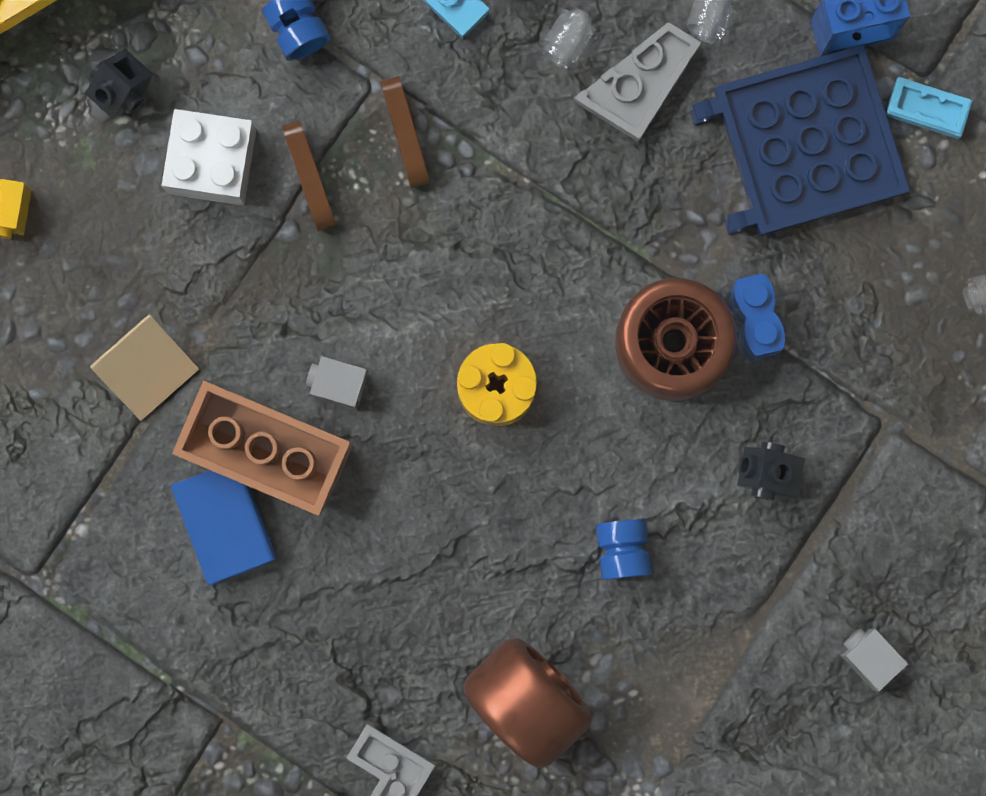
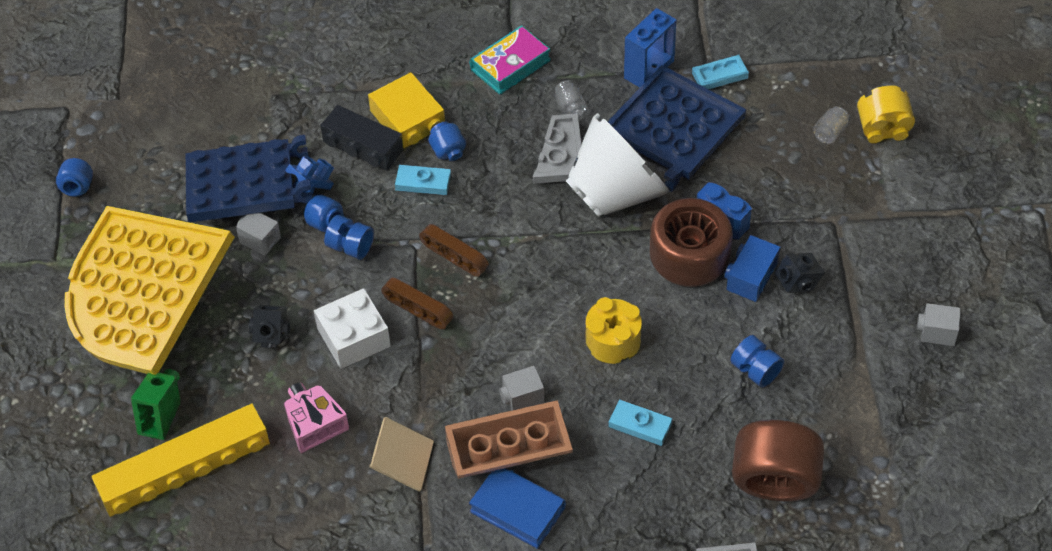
camera: 35 degrees left, 30 degrees down
(85, 241) = (313, 416): none -> bright pink torso
(438, 520) = (640, 422): none -> medium azure plate
(568, 37) = (505, 155): clear brick -> none
(665, 174) = (611, 171): none -> white cone
(725, 420) = (752, 268): none -> blue brick

